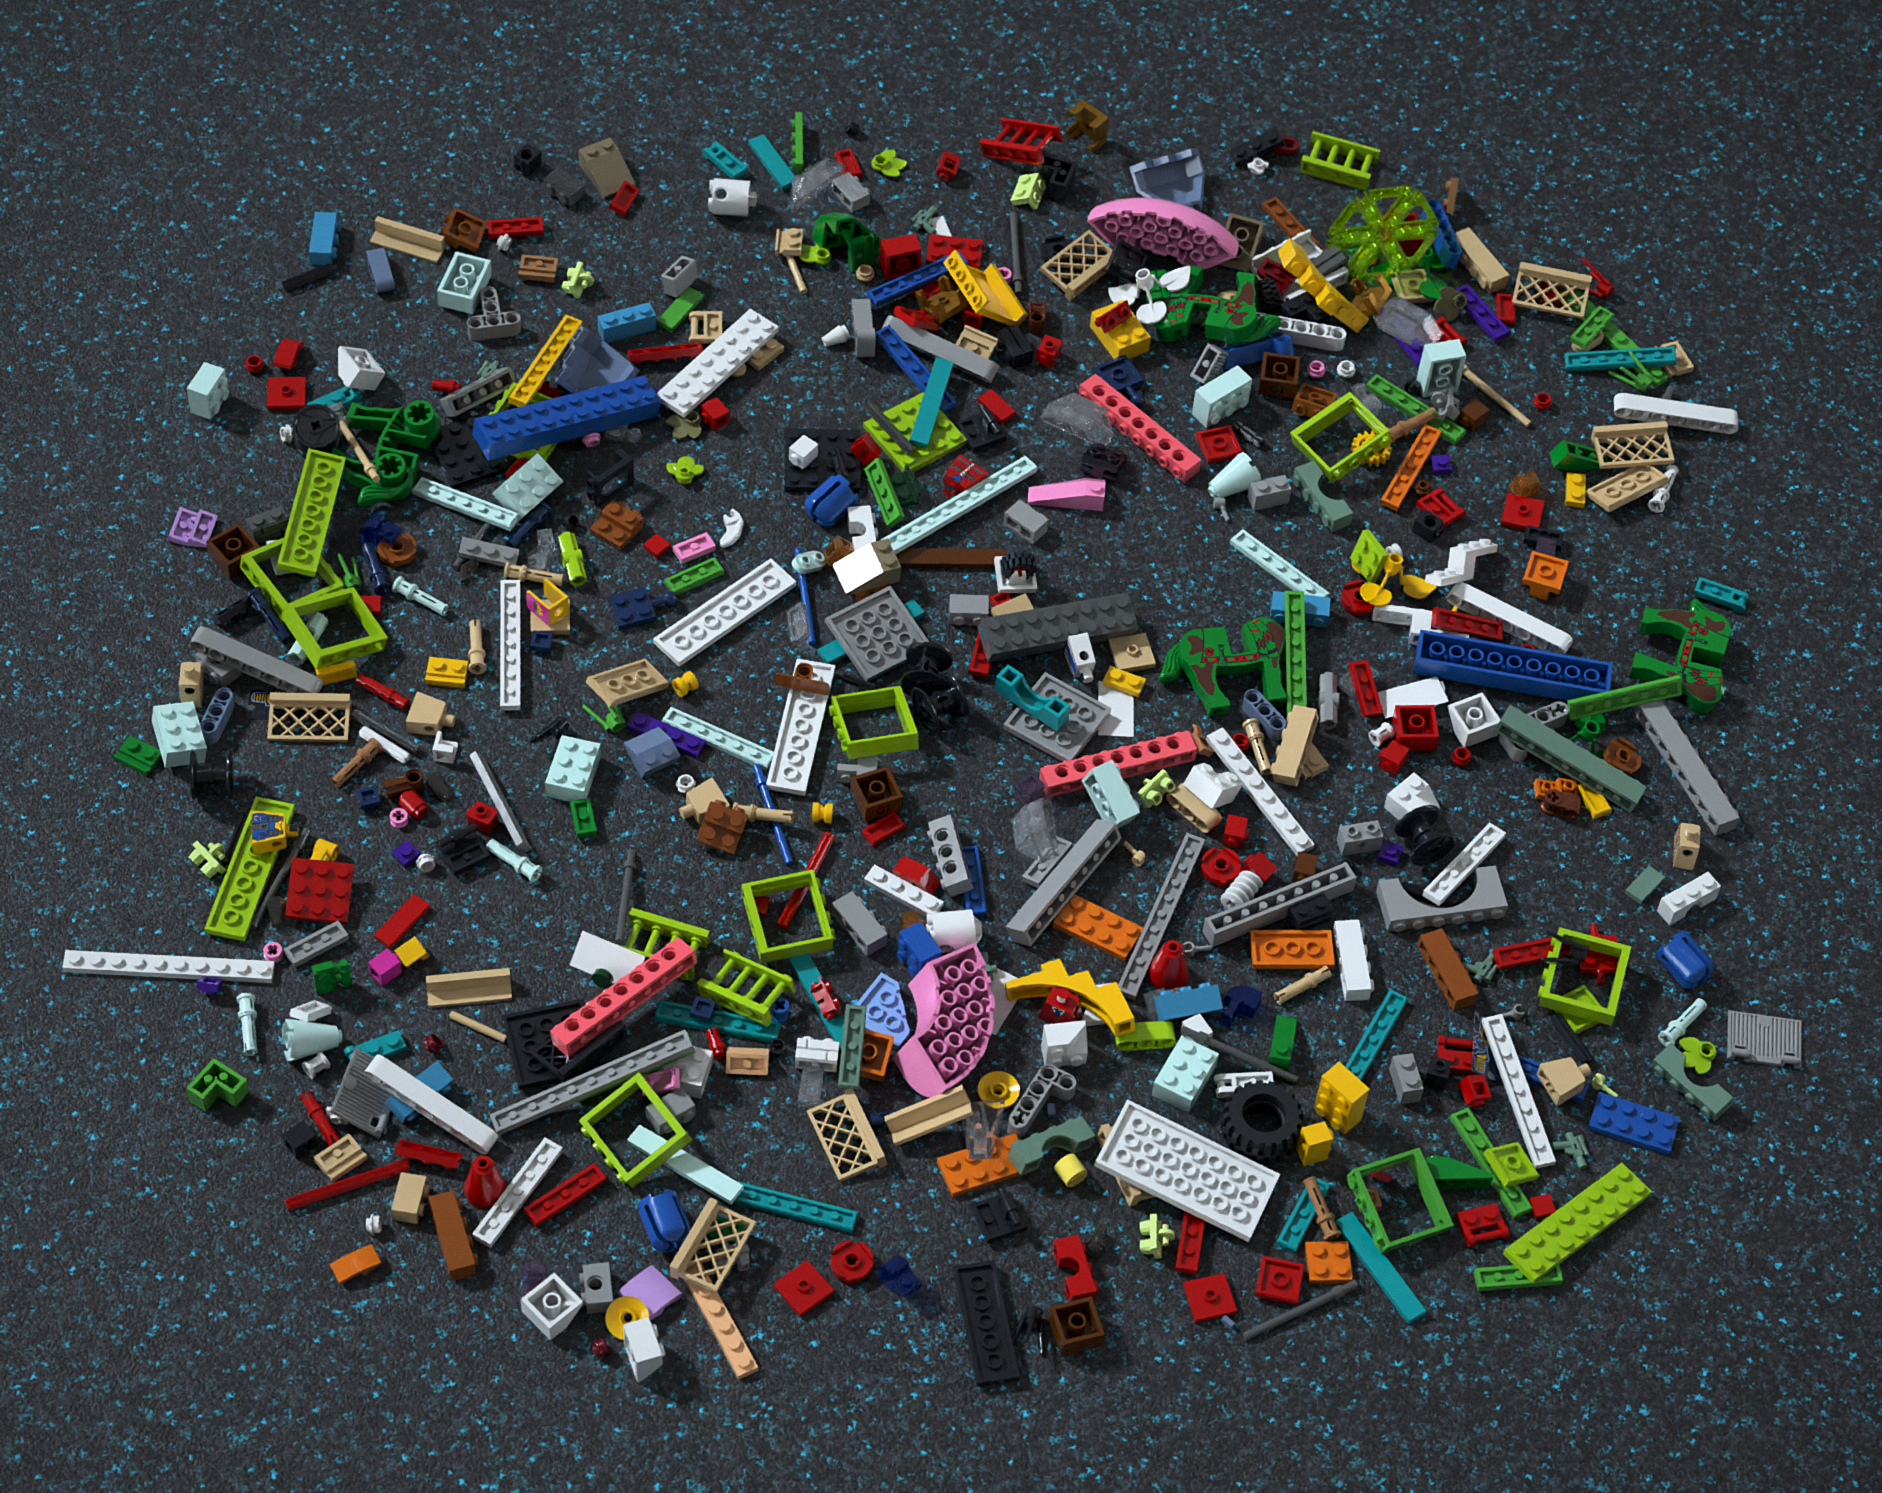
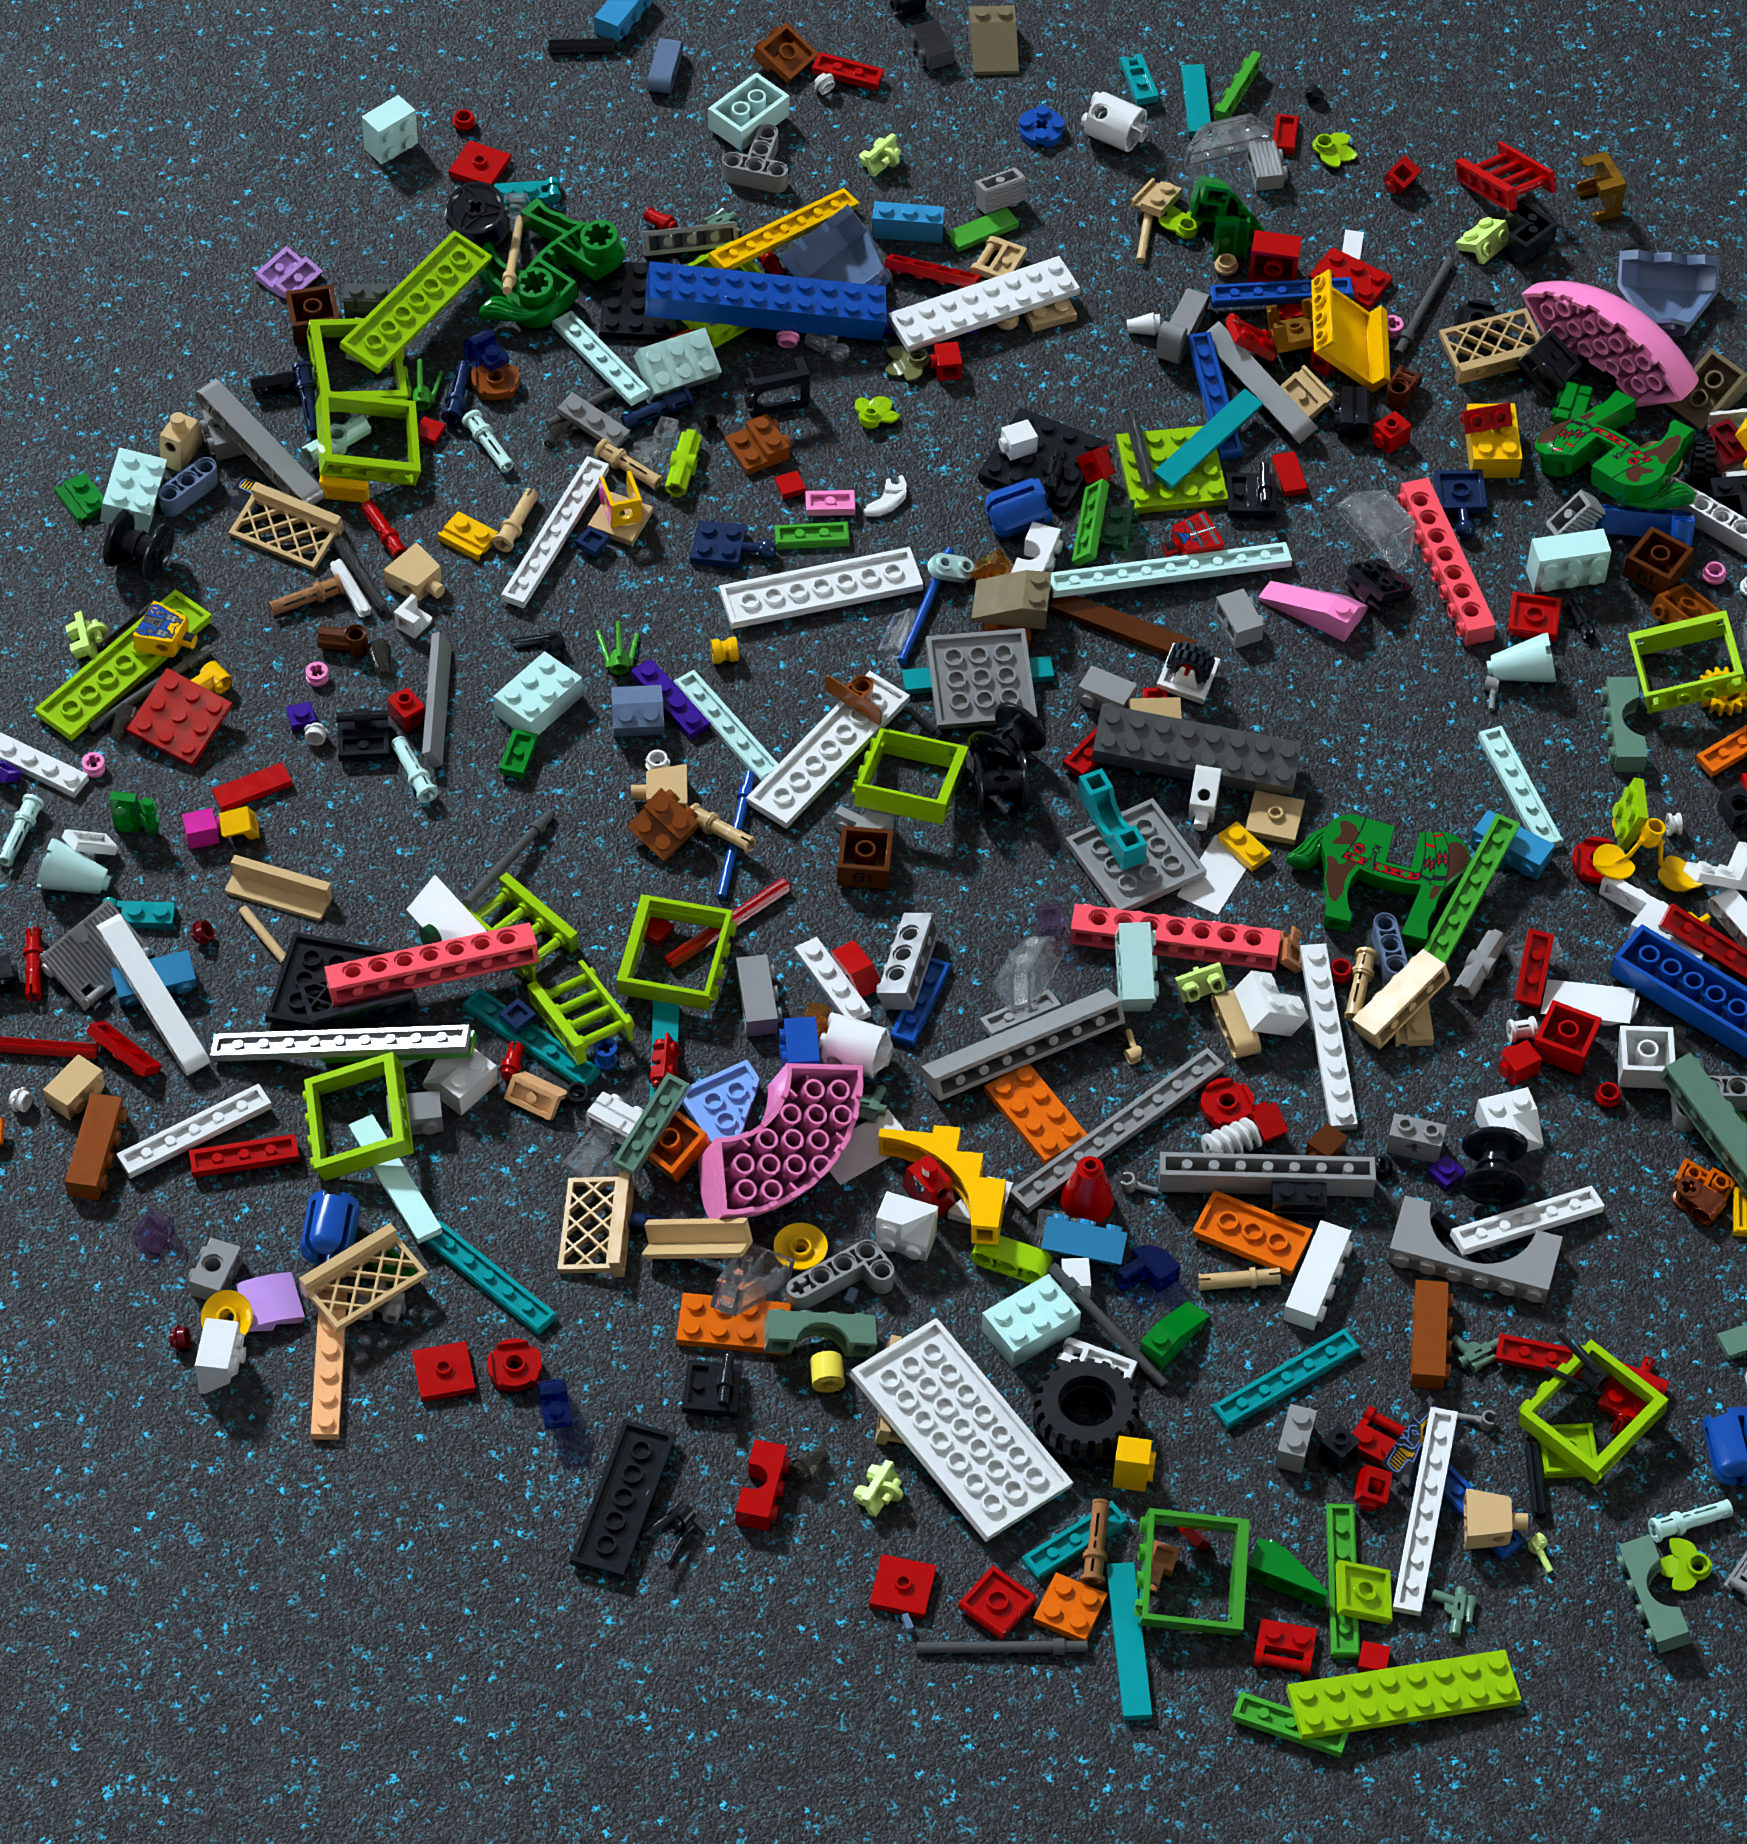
camera: 30 degrees right, 0 degrees up
(287, 353) = (504, 120): red slope -> none
(316, 944) = (143, 774): light grey plate -> none
(316, 1065) = (63, 903): white bush -> none
(340, 1158) = (28, 1013): tan plate -> none
(358, 368) = (569, 164): white slope -> none
(368, 797) = (296, 638): dark blue plate -> none
(408, 240) = (718, 43): tan panel -> none
(413, 804) = (340, 665): red brick -> none
(484, 1183) = (161, 1102): red cone -> none
(538, 268) = (846, 125): medium nougat plate -> none
(551, 1306) = (150, 1267): white slope -> none
(624, 198) = (993, 81): red tile -> none
(627, 682) = (656, 622): tan tile -> none
(663, 1080) = (422, 1075): bright pink tile -> none
(672, 212) = (1041, 117): none -> blue plate
(820, 812) = (791, 854): yellow wheel -> none
(883, 829) = (853, 902): red tile -> none
(923, 220) = (1335, 229): sand green piece -> none
(1076, 1326) = (721, 1547): reddish brown brick -> none
(1152, 312) = (1529, 400): white plant -> none
(1189, 1244) = (915, 1515): red plate -> none
(1235, 831) = (1268, 1070): red brick -> none
(1269, 492) = (1559, 695): light grey brick -> none
(1341, 1098) = (1192, 1424): yellow brick -> none
(1633, 1123) = (1551, 1611): blue plate -> none

